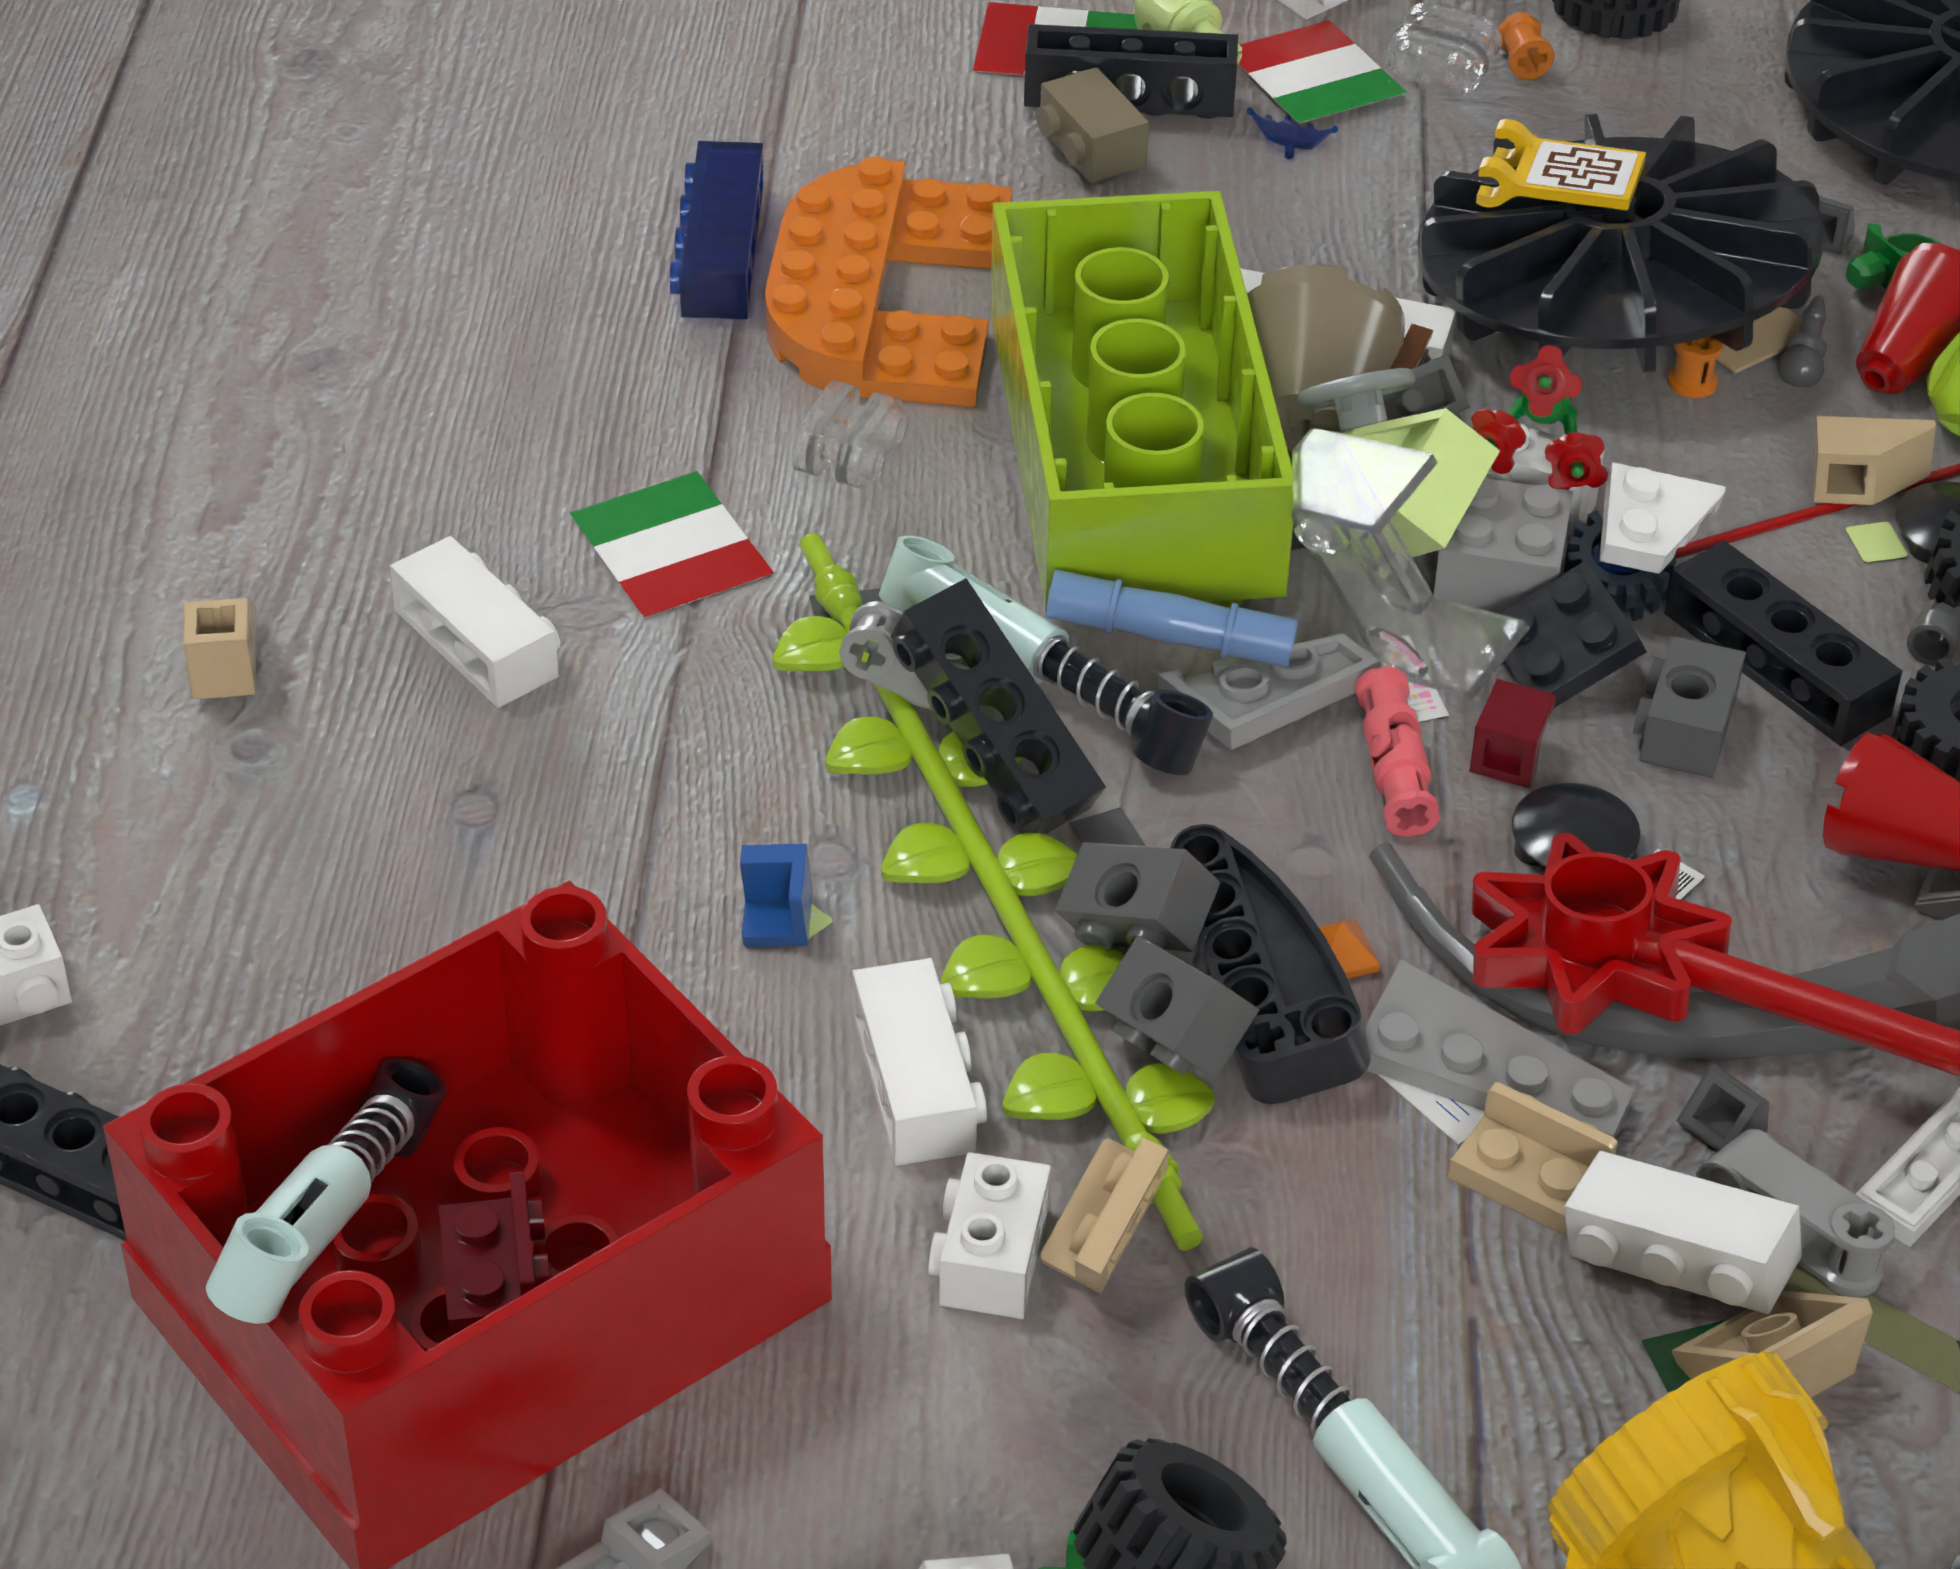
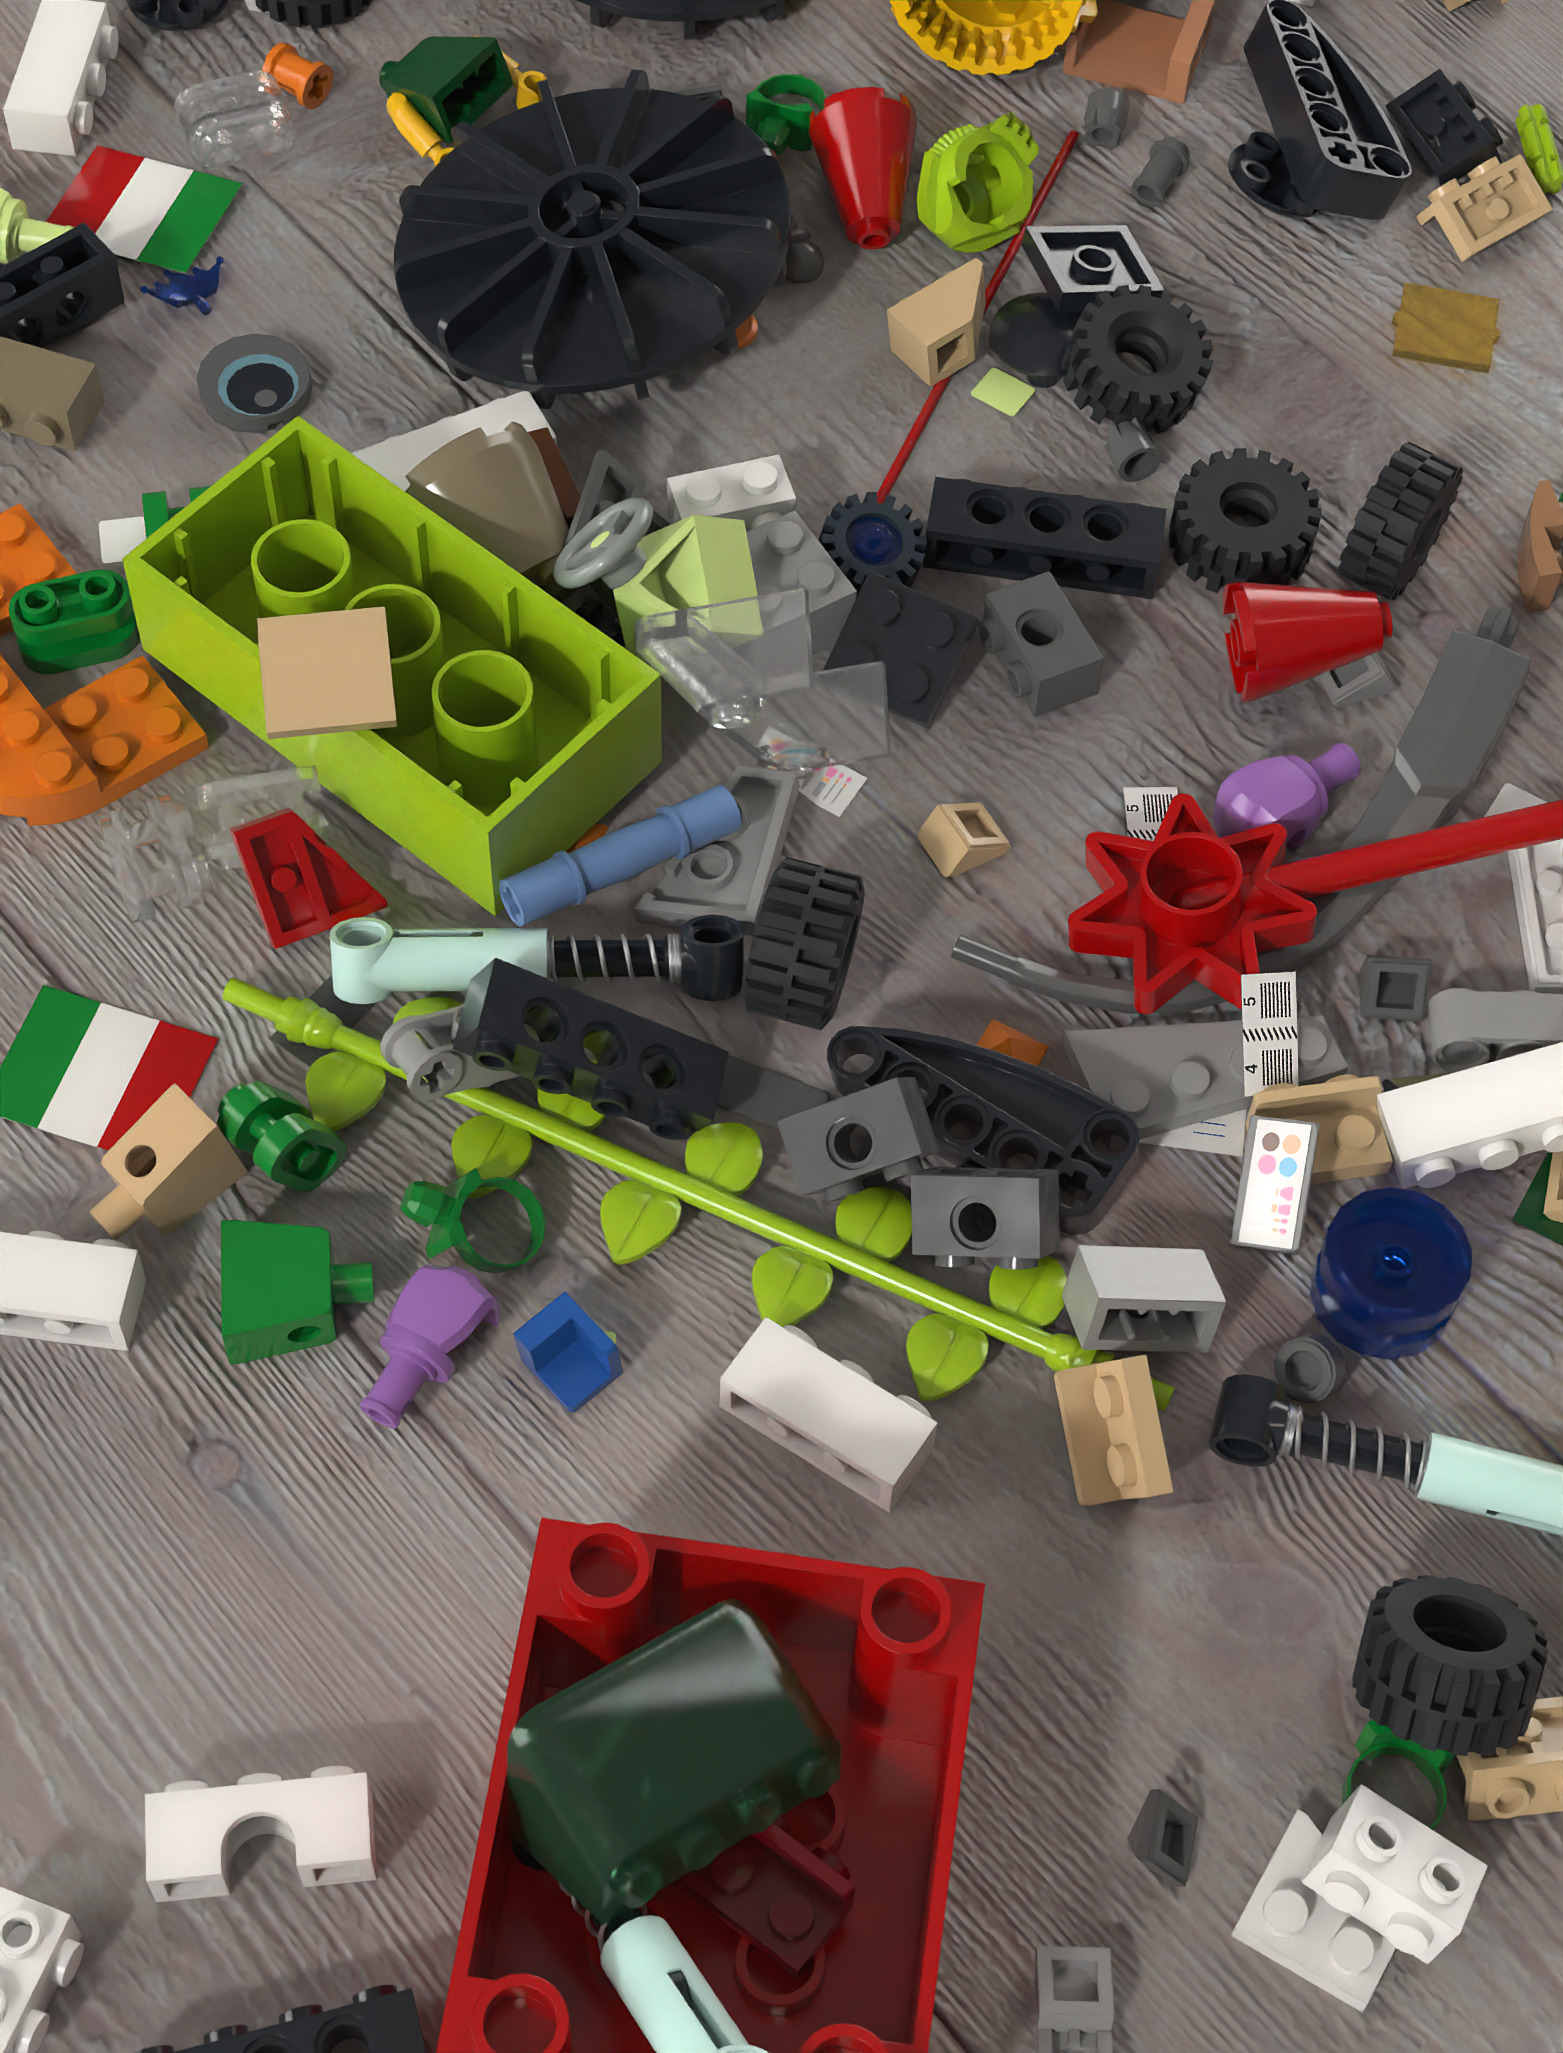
camera: 45 degrees left, 15 degrees up
(202, 987) = (199, 1828): none -> white arch
(493, 1083) = (666, 1760): none -> clear green windscreen
(628, 729) = (283, 1288): none -> green torso
(636, 604) = (166, 1167): none -> tan torso
(682, 809) = (426, 1322): none -> medium lavender piece
(729, 633) = (280, 1135): none -> green brick
(784, 745) = (442, 1207): none -> green piece
(838, 1500) = (1164, 1837): none -> dark grey slope
(930, 496) = (299, 878): none -> red wing
(951, 267) = (74, 621): none -> green brick
(960, 478) = (231, 794): none -> clear brick
(992, 1235) = (1040, 1517): white brick -> none
(1043, 337) = (326, 672): none -> tan slope
(1236, 1147) = (1143, 1299): none -> light grey brick
(1241, 751) = (803, 943): none -> black tyre
(1272, 211) = (254, 382): none -> dark grey tile
(1331, 1301) = (1310, 1368): none -> dark grey tile
(1397, 752) = (874, 840): coral piece -> none
(1447, 1161) = (1274, 1184): none -> slope
(1466, 1275) = (1390, 1273): none -> clear blue wheel
(1478, 793) = (961, 837): none -> tan slope
(1511, 733) = (945, 762): dark red panel -> none
(1546, 399) = (723, 435): red plant -> none
(1559, 171) = (513, 205): flag -> none
(1560, 1047) = (1269, 1030): none -> white sticker
(1573, 808) = (1053, 813): black dish -> none
(1631, 103) = (450, 83): none -> dark green torso
(1652, 515) = (878, 495): white wing -> none
(1782, 920) = (1283, 793): none -> medium lavender piece

